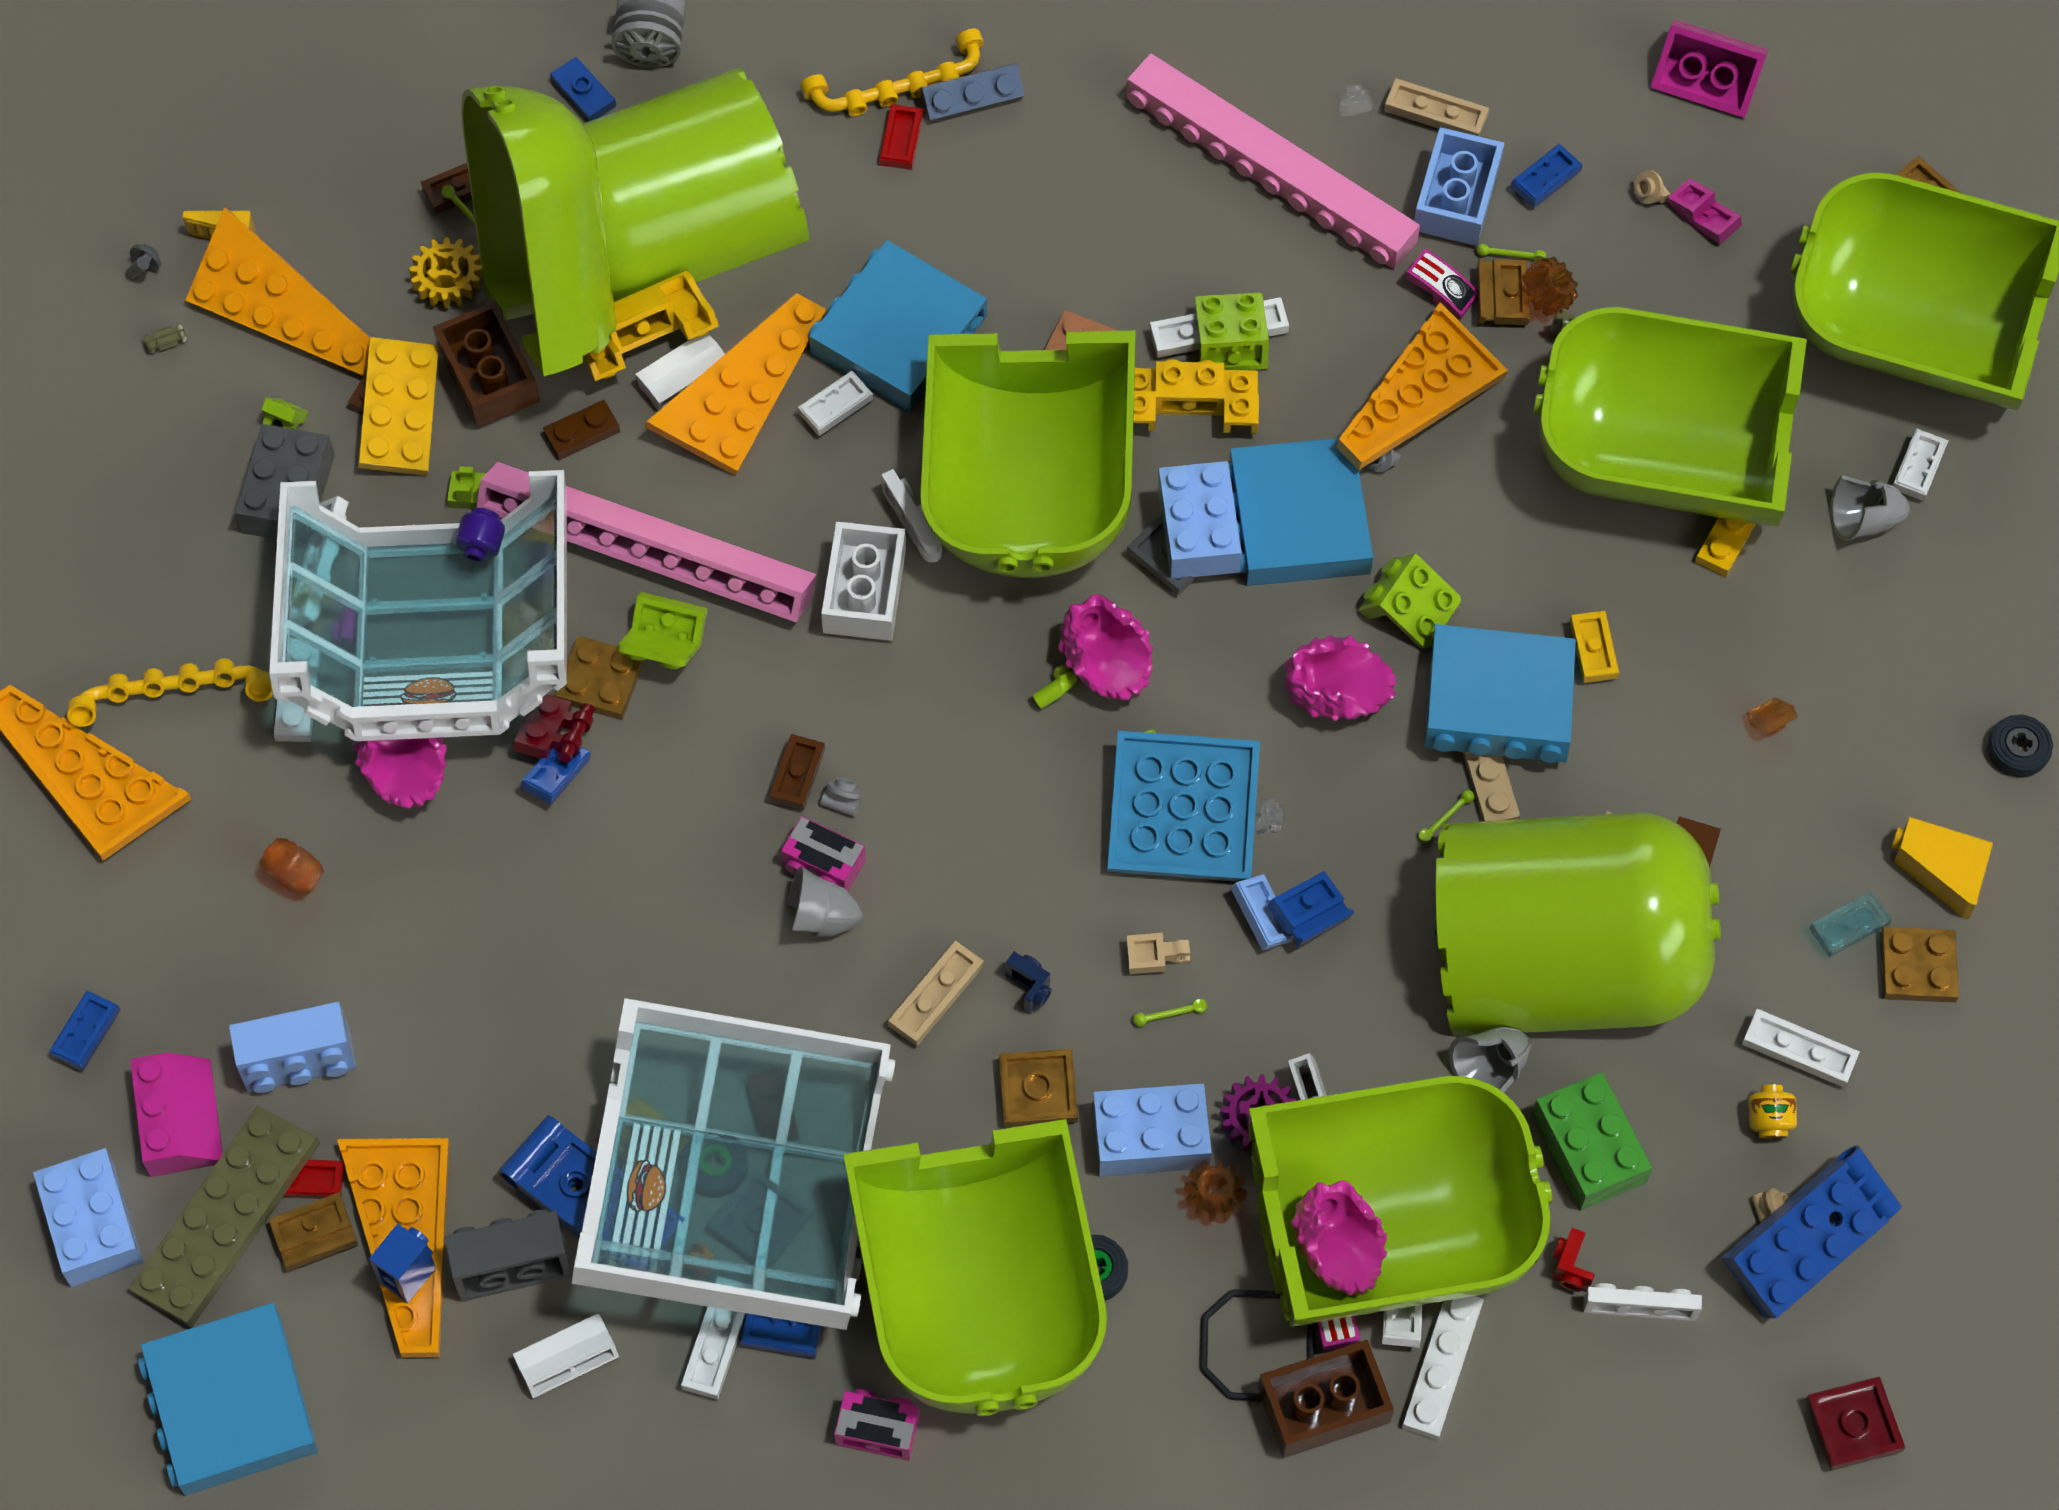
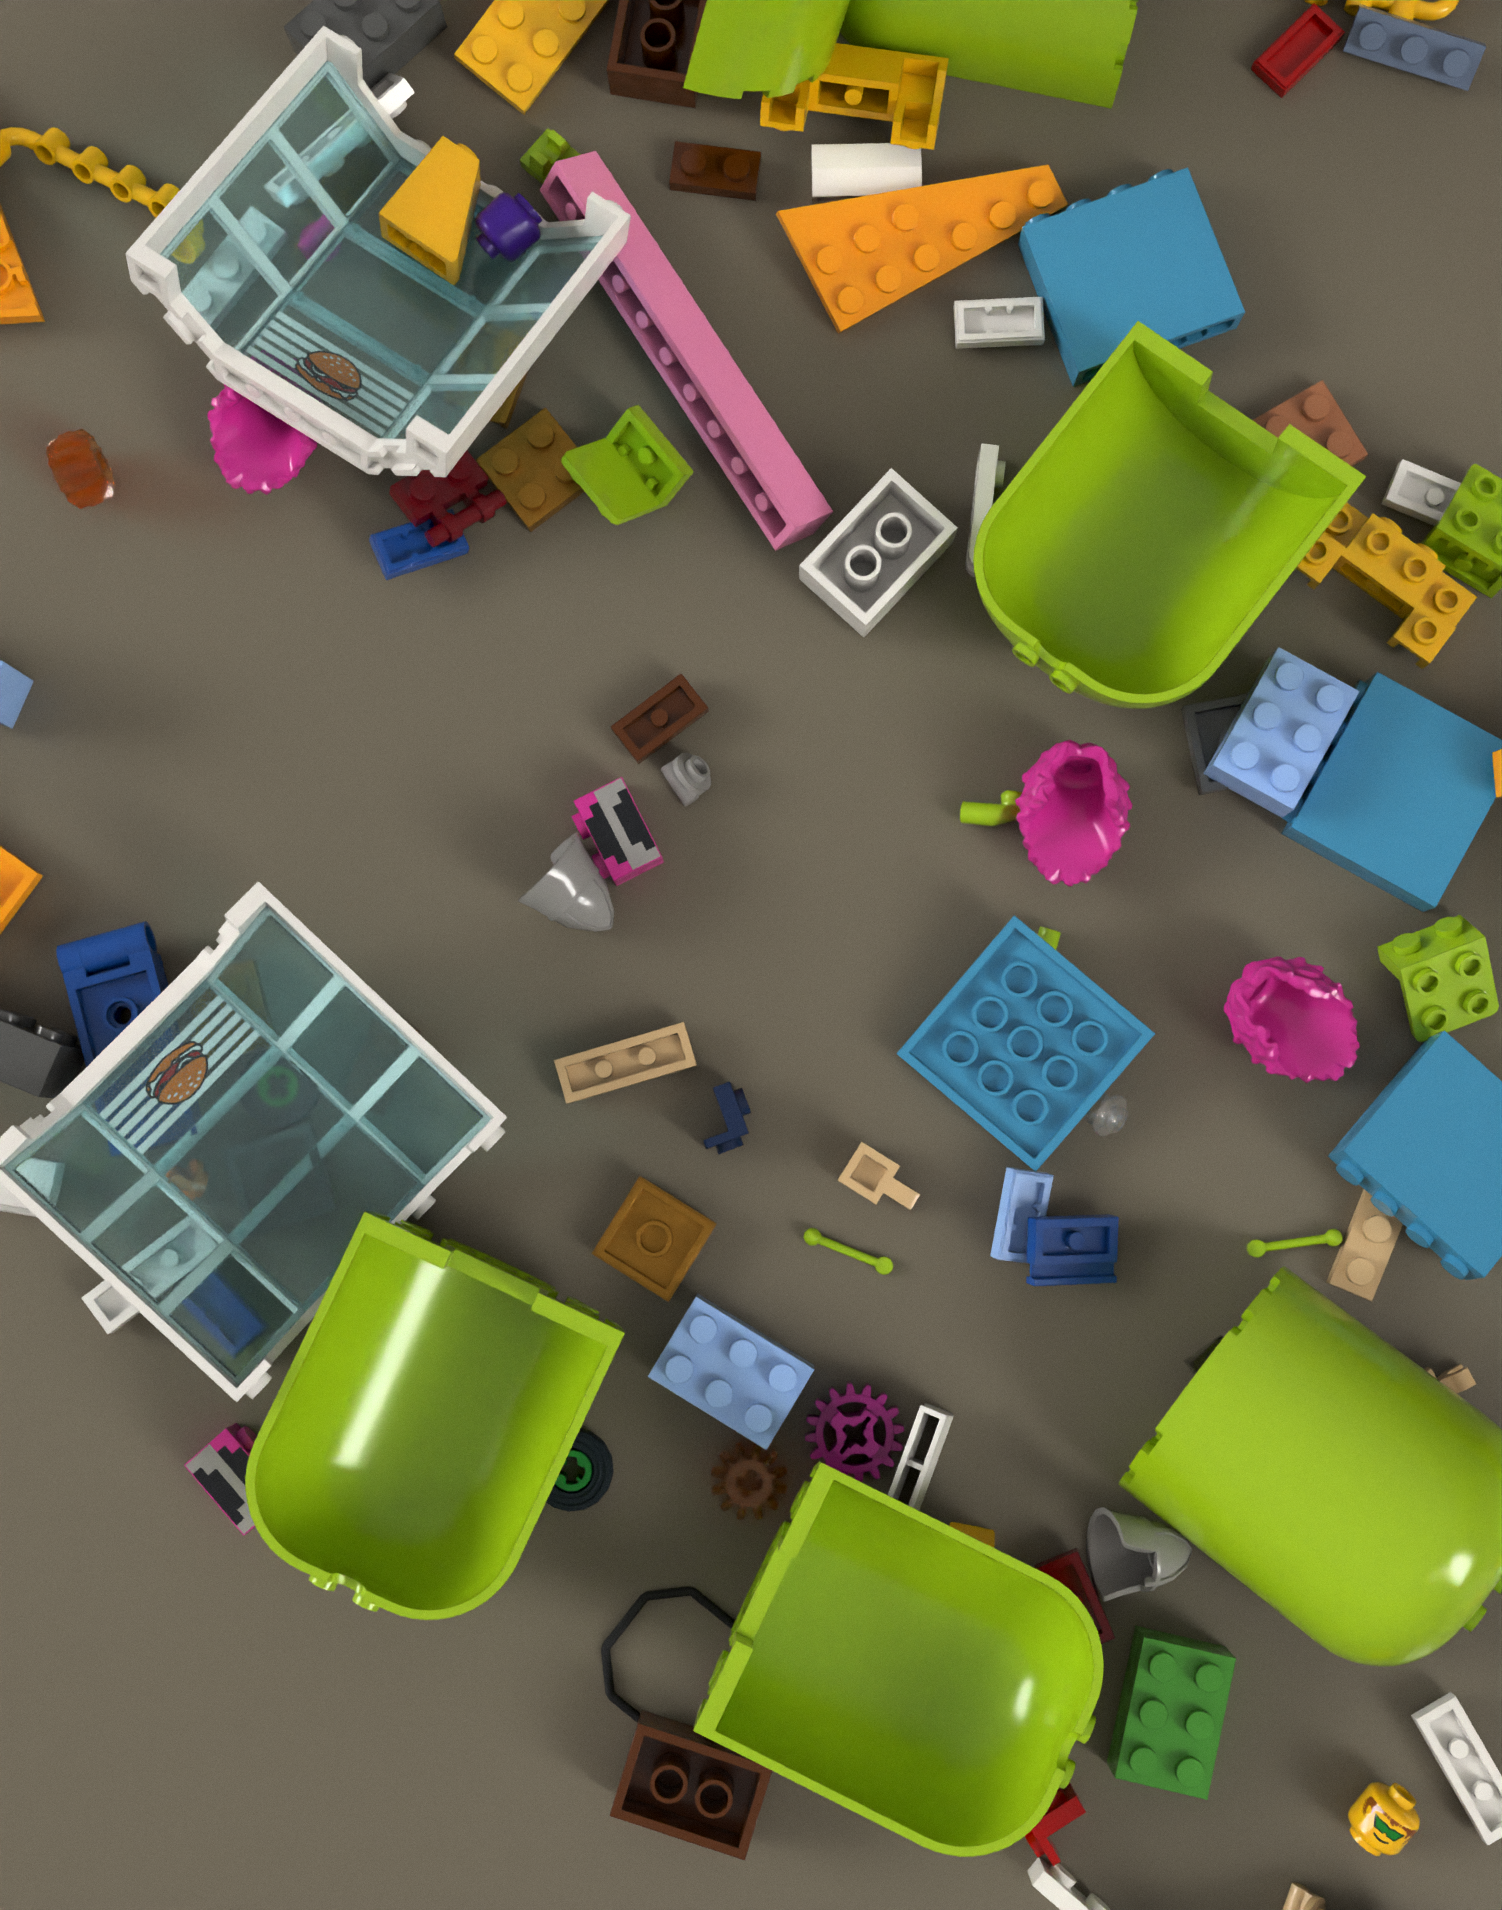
camera: 45 degrees right, 20 degrees up
(426, 554) = (435, 209): none -> yellow slope
(1340, 1237) = (824, 1643): dark pink hair -> none
(1442, 1366) = (812, 1845): white plate -> none

